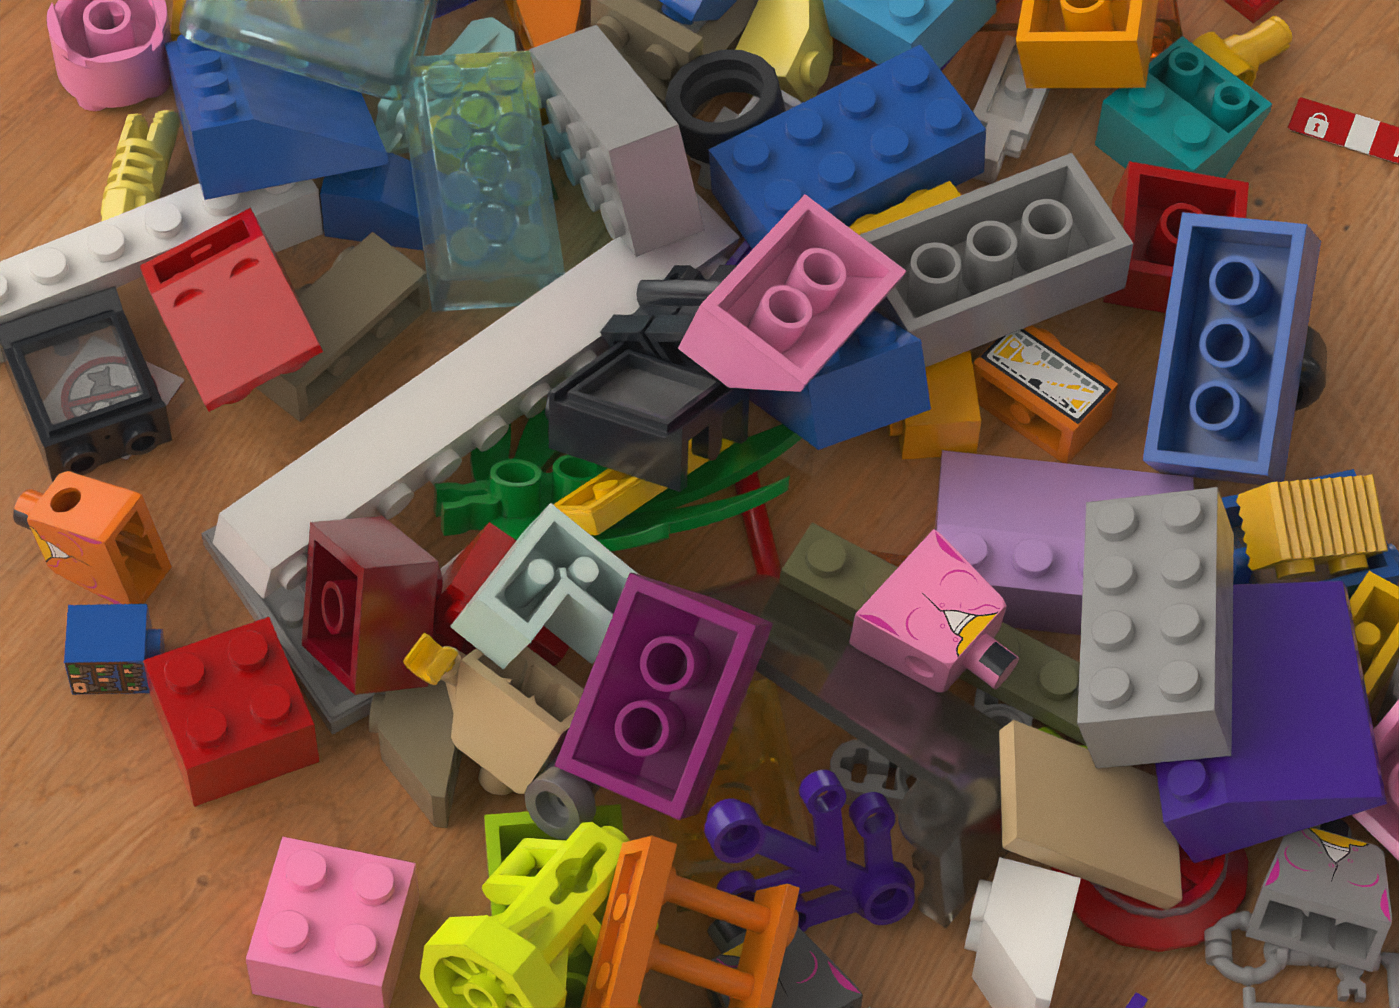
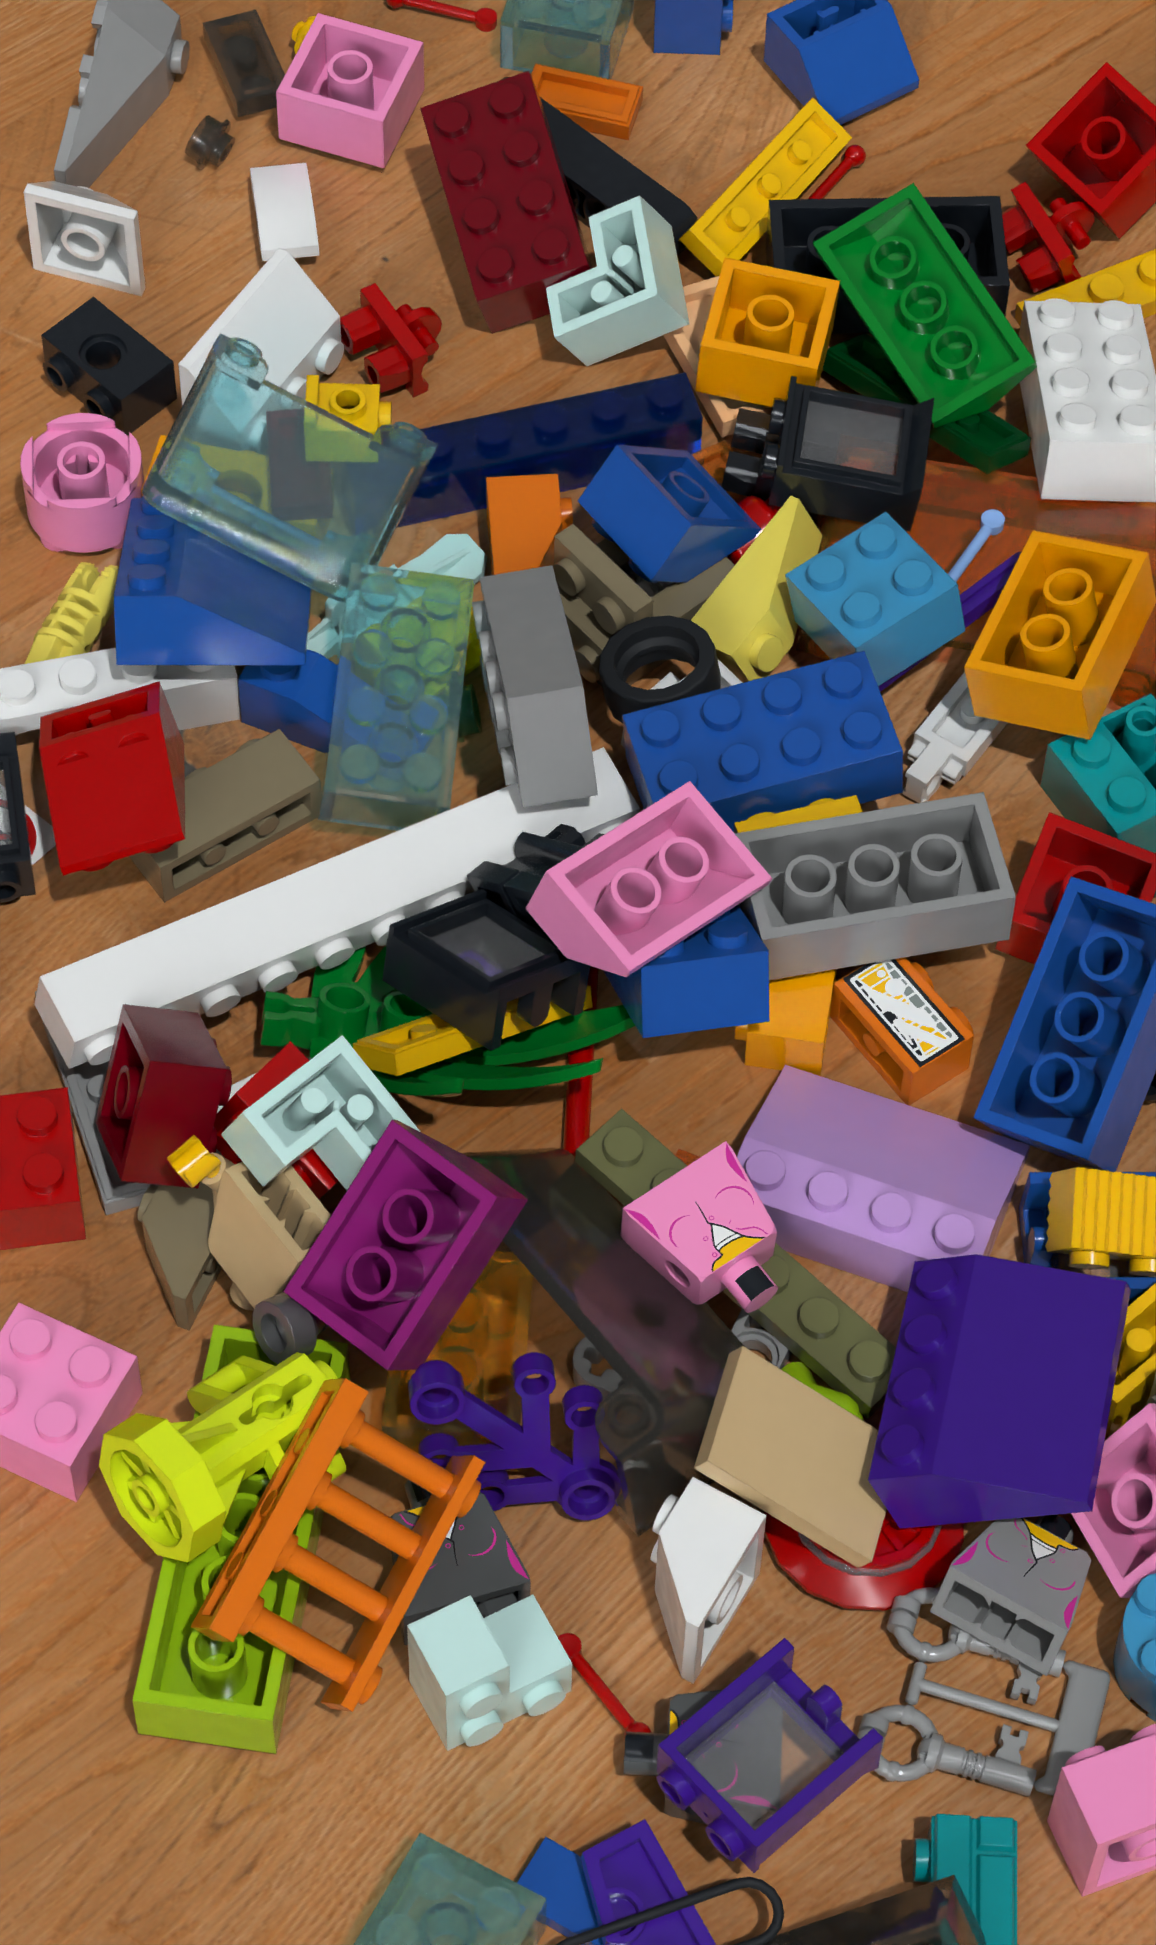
camera: 15 degrees right, 0 degrees up
(1157, 629) = (914, 1287): light grey brick -> none

